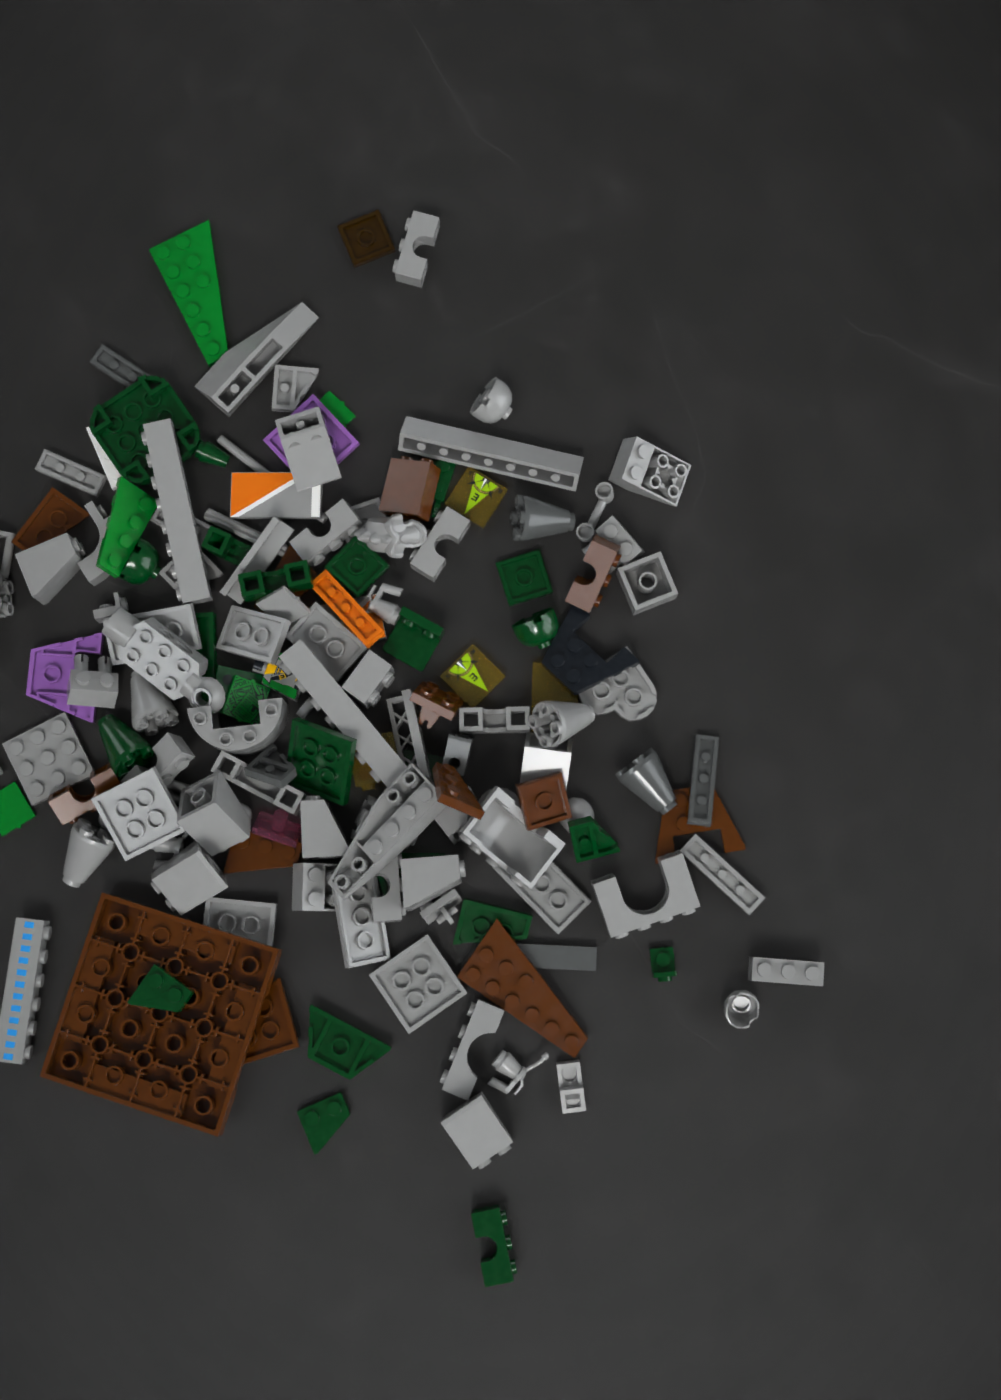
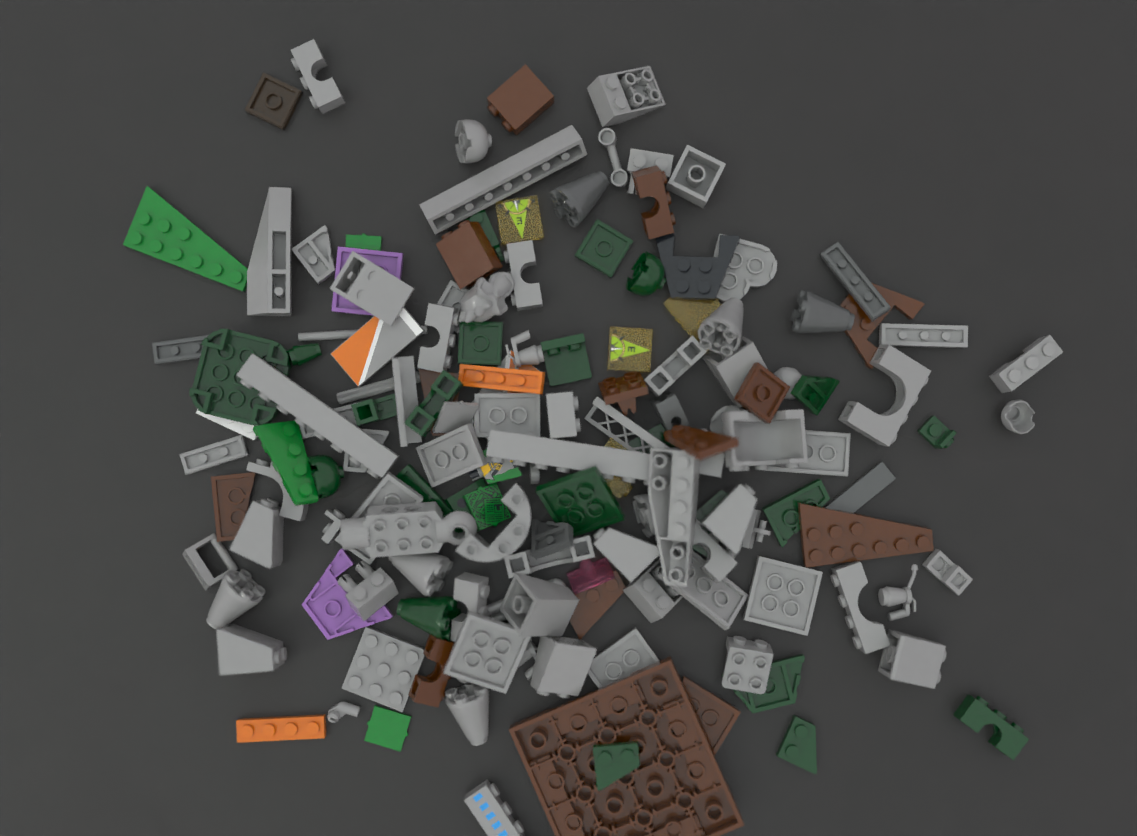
camera: 45 degrees left, 5 degrees up
(337, 1013) = (747, 665): none -> light grey bracket
(560, 403) = (520, 100): none -> reddish brown brick

